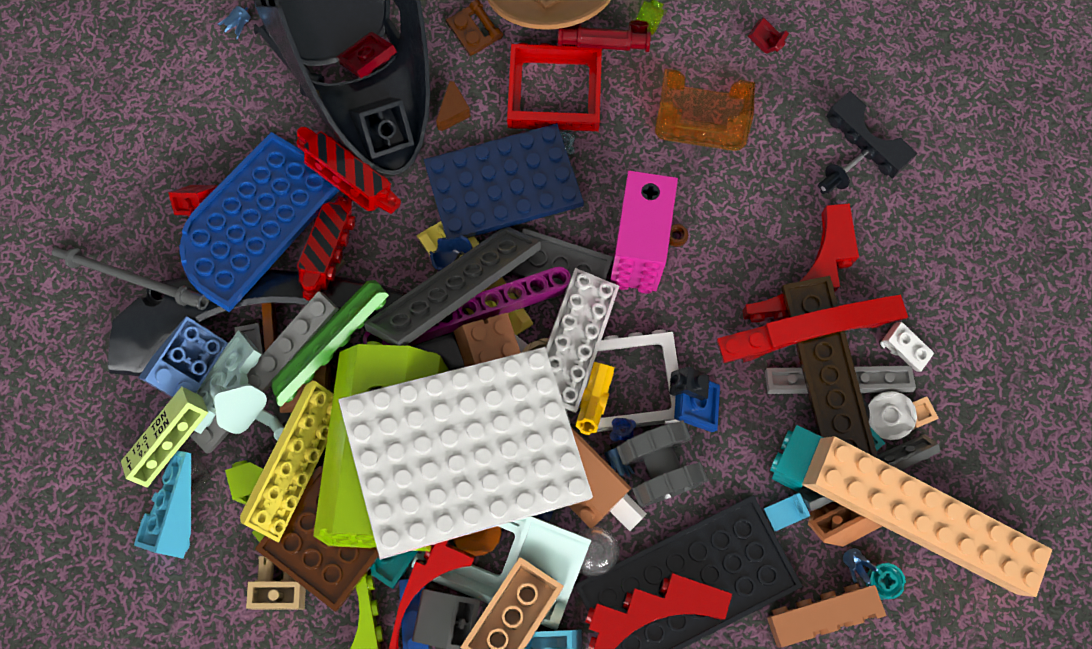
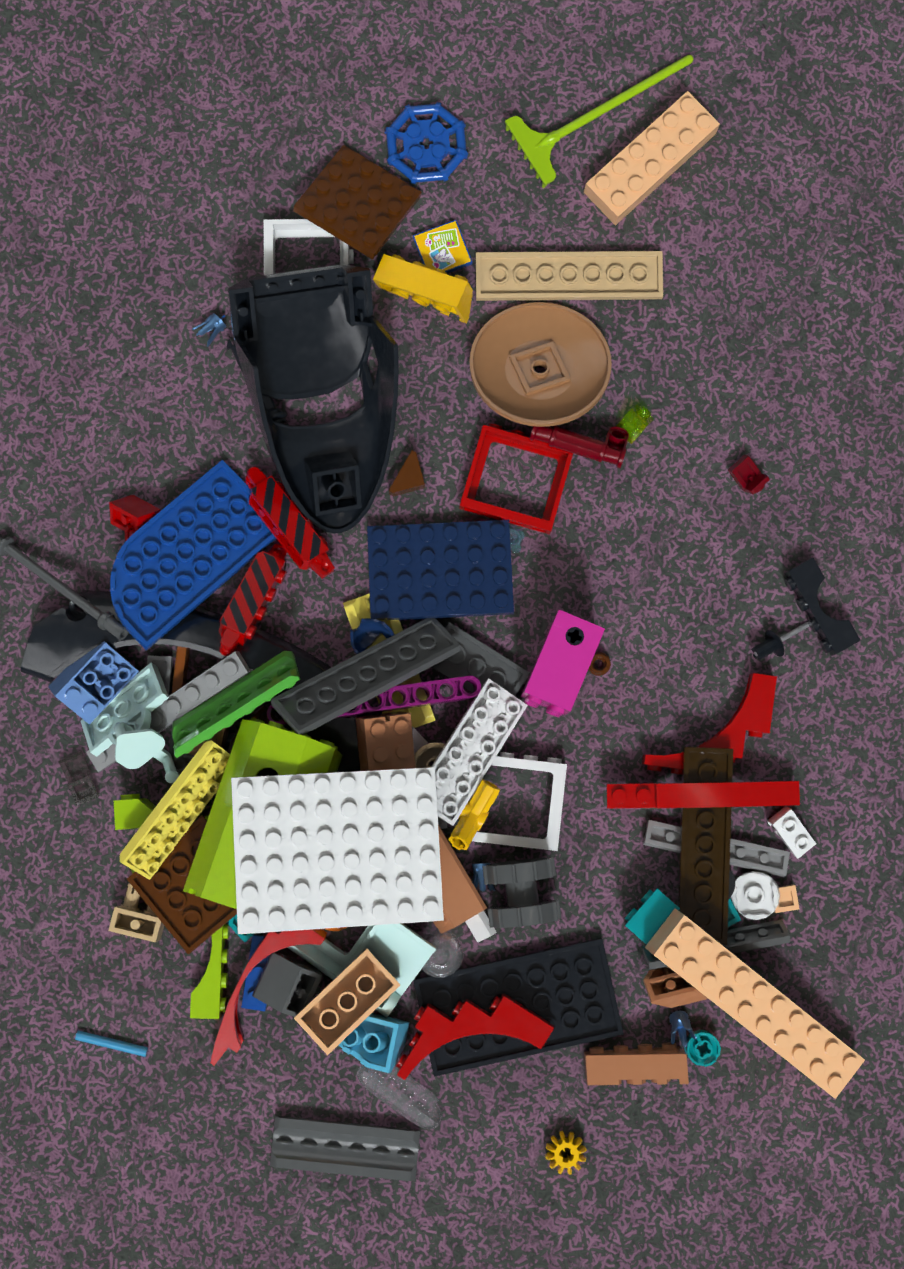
camera: 15 degrees right, 10 degrees up
(164, 437) = (62, 751): yellowish green brick -> none
(169, 522) = (50, 831): medium azure wedge -> none
(366, 54) = (334, 401): dark red plate -> none
(468, 32) = (444, 396): reddish brown plate -> none
(622, 423) = (491, 843): clear blue plate -> none
(690, 383) = (568, 821): black bracket -> none
(697, 412) = (572, 837): blue tile -> none
(704, 115) = (661, 543): clear orange windscreen -> none
(786, 512) = (627, 961): medium azure bracket -> none

